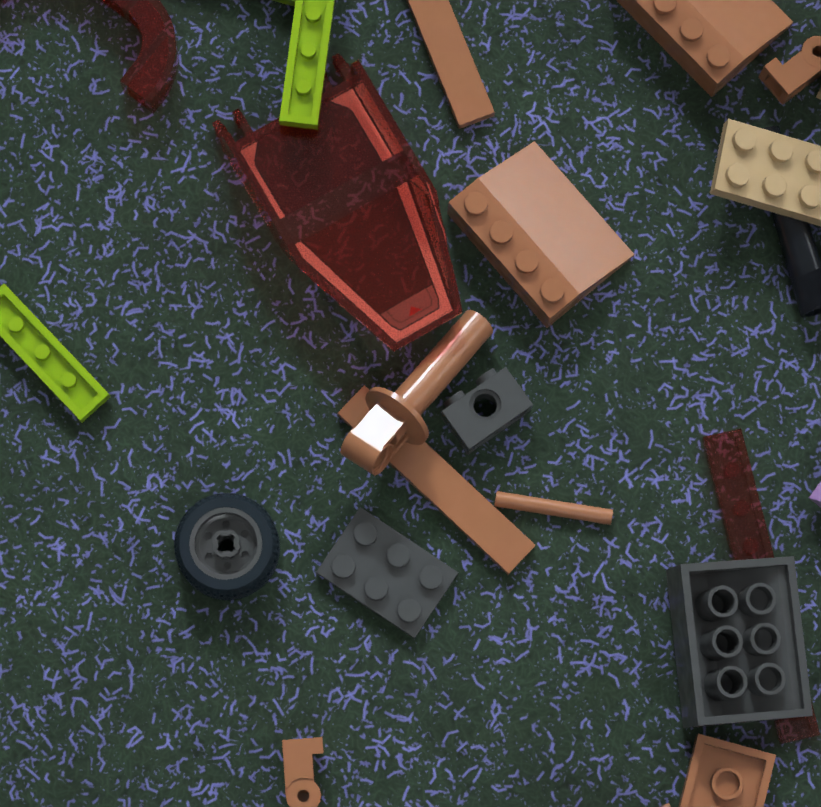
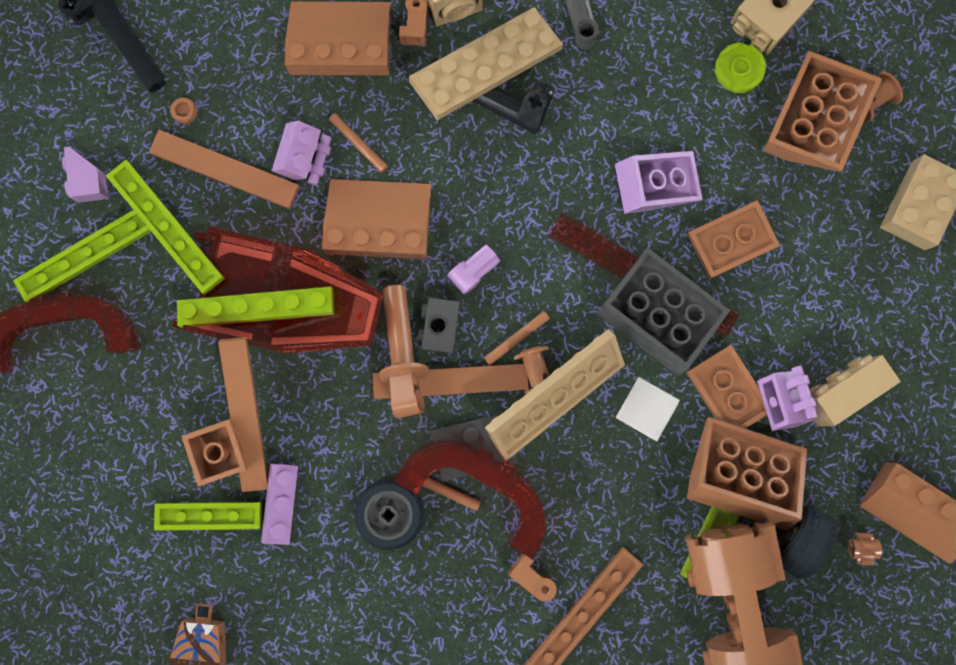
camera: 45 degrees left, 5 degrees up
(119, 294) = (214, 452): none -> nougat slope
(126, 417) = (279, 504): none -> lavender plate
(190, 287) = (244, 411): none -> nougat tile
(308, 583) = (451, 493): none -> nougat bar
(319, 192) = (255, 307): none -> lime plate
(375, 605) = (480, 465): none -> clear red arch
(529, 77) = (297, 151): none -> lavender brick
(531, 606) = (555, 395): none -> tan plate
(538, 561) = (534, 365): none -> nougat hose
(573, 387) = (469, 273): none -> lavender piece
(603, 133) = (358, 142): none -> nougat bar
(614, 730) = (647, 409): none -> white sticker

